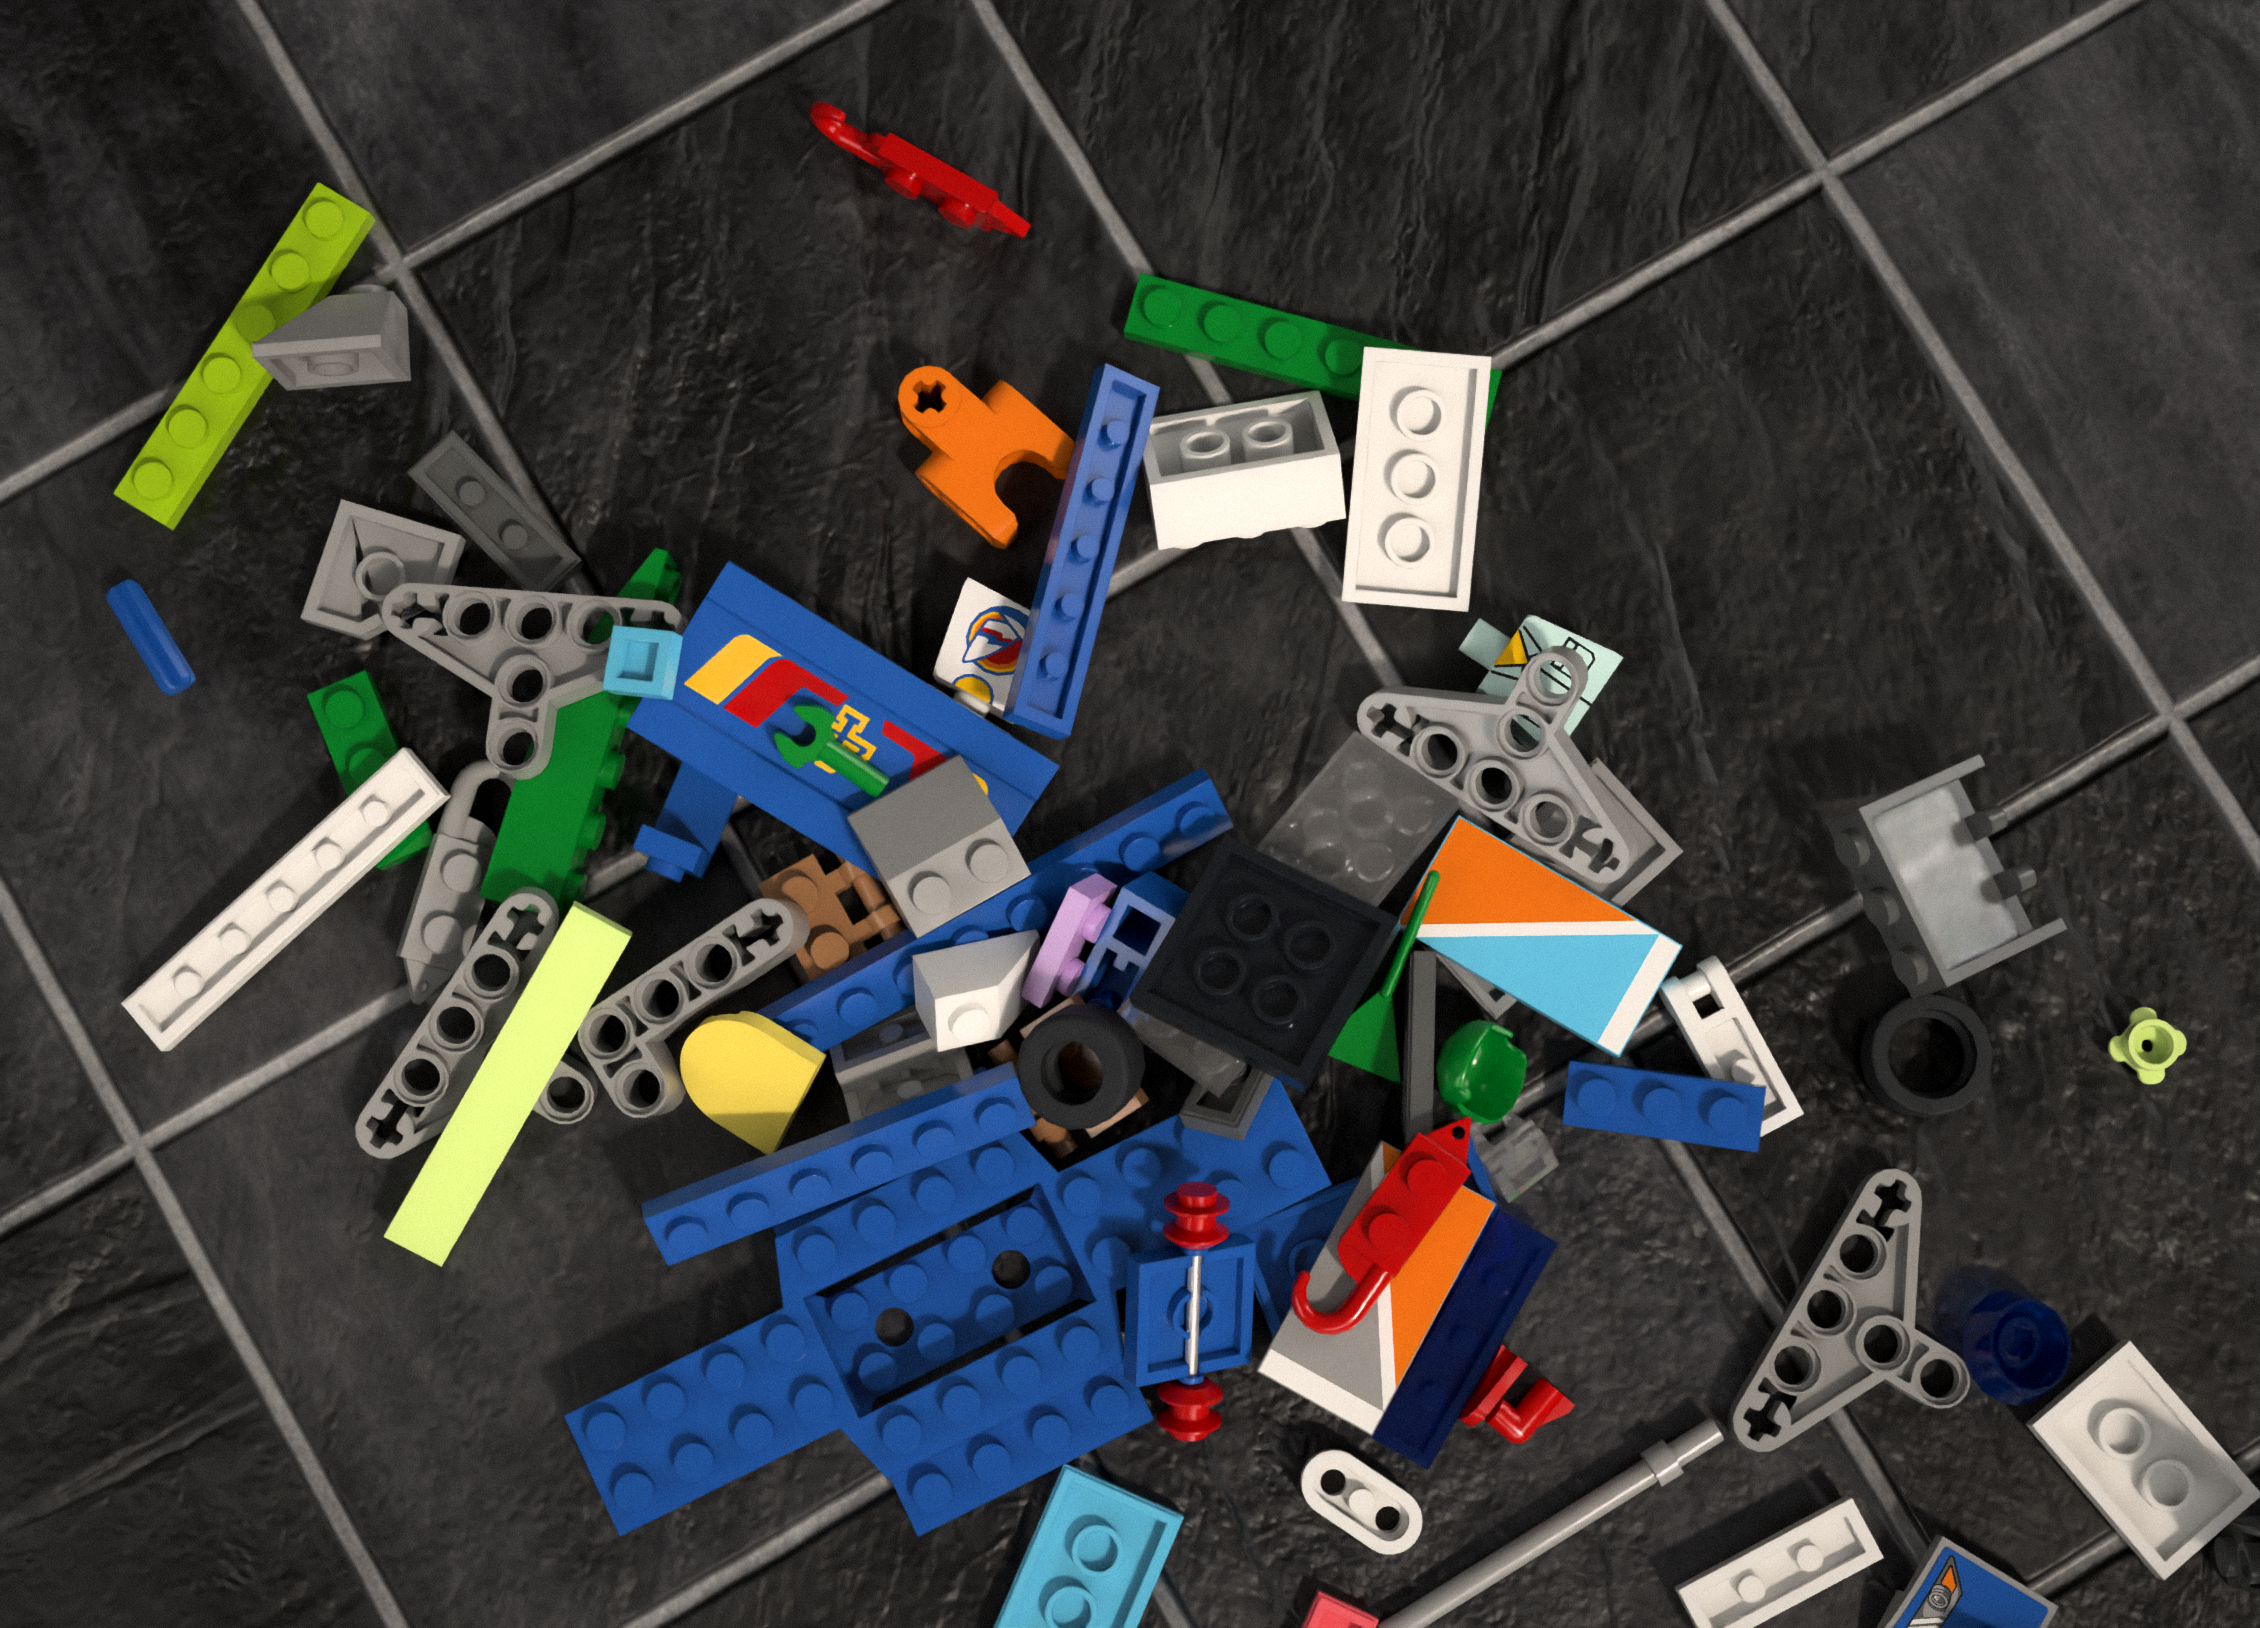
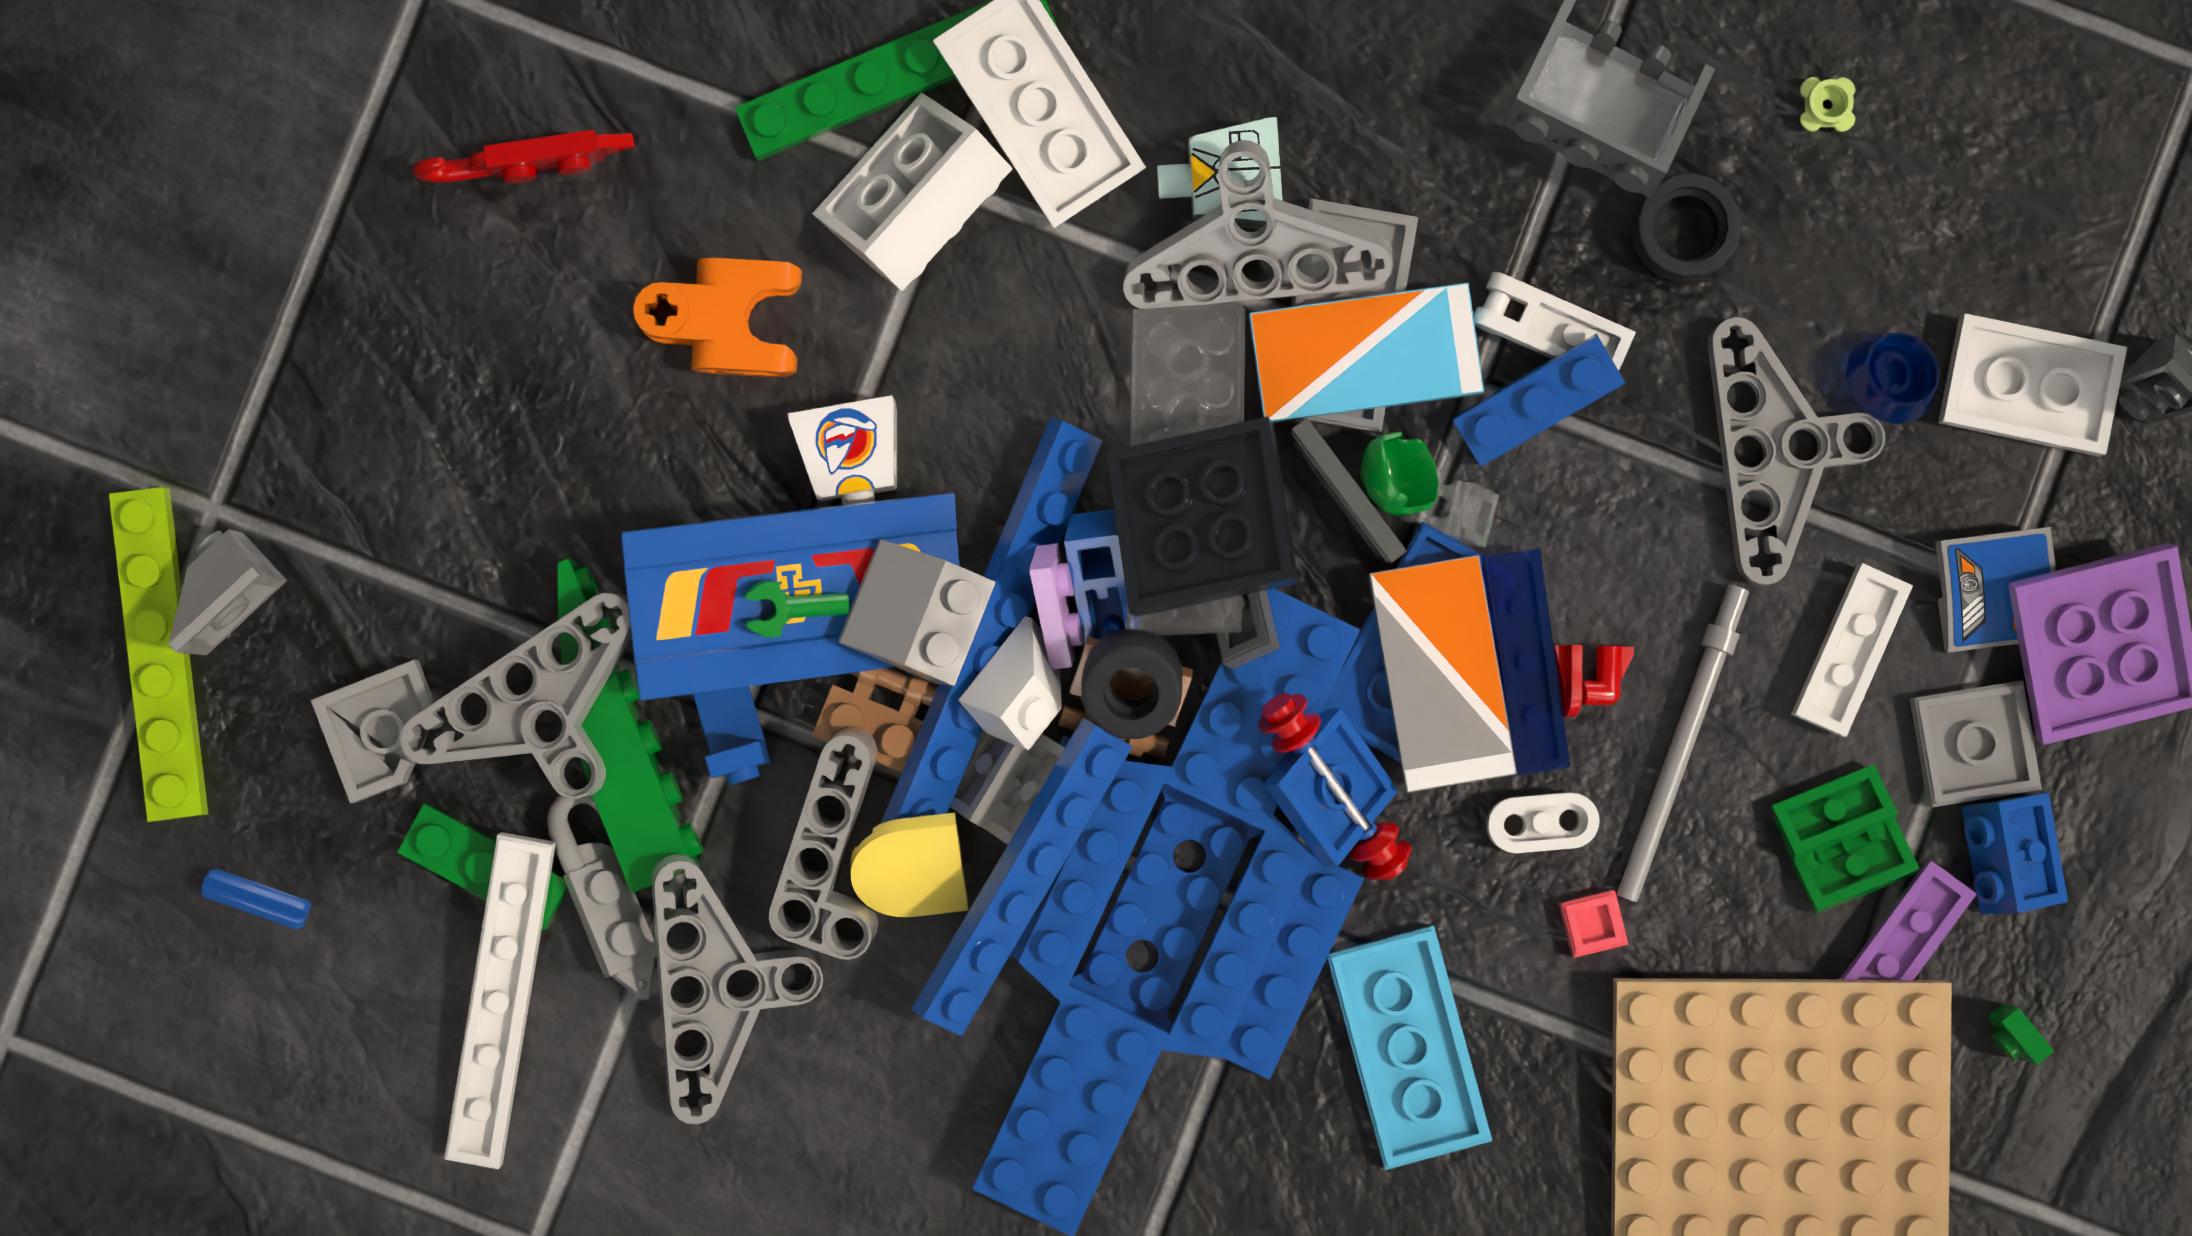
camera: 40 degrees left, 5 degrees up
(495, 516) = (425, 628): dark grey tile -> none
(508, 1083) = (754, 1001): yellowish green tile -> none
(642, 662) = (618, 648): medium azure tile -> none
(1081, 553) = (853, 335): blue plate -> none
(1370, 1032) = (1307, 507): green piece -> none
(1391, 1224) = (1420, 623): red plate -> none

